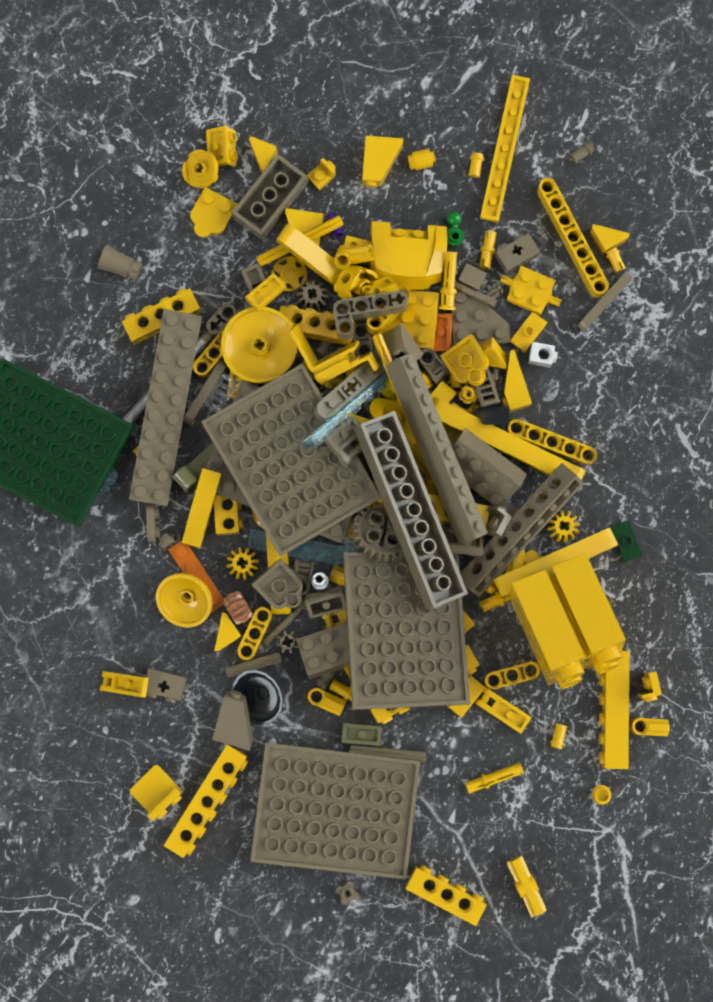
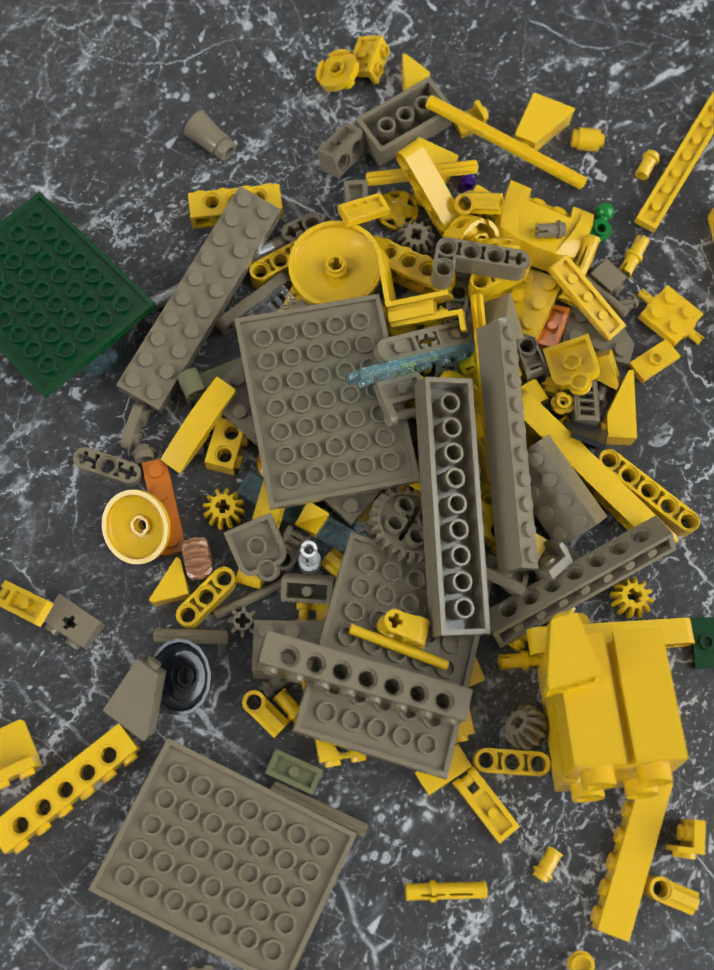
camera: 15 degrees right, 10 degrees down
(129, 555) = (103, 457): none -> dark tan beam
(211, 213) = (329, 117): yellow plate -> none
(229, 240) = (342, 149): none -> dark tan brick
(311, 550) = (312, 519): none -> yellow slope
(357, 189) = (505, 142): none -> yellow axle
(406, 624) = (398, 647): none -> yellow bar
(409, 610) = (408, 628): none -> yellow piece
(416, 260) = (555, 229): none -> dark tan pin
(458, 647) = (455, 697): none -> dark tan brick
(460, 303) = (586, 297): none -> yellow tile
(510, 261) = (667, 269): dark tan brick -> none
(514, 648) = (525, 727): none -> dark tan gear
(525, 596) = (568, 656): none -> yellow slope
(534, 358) = (656, 395): white brick -> none

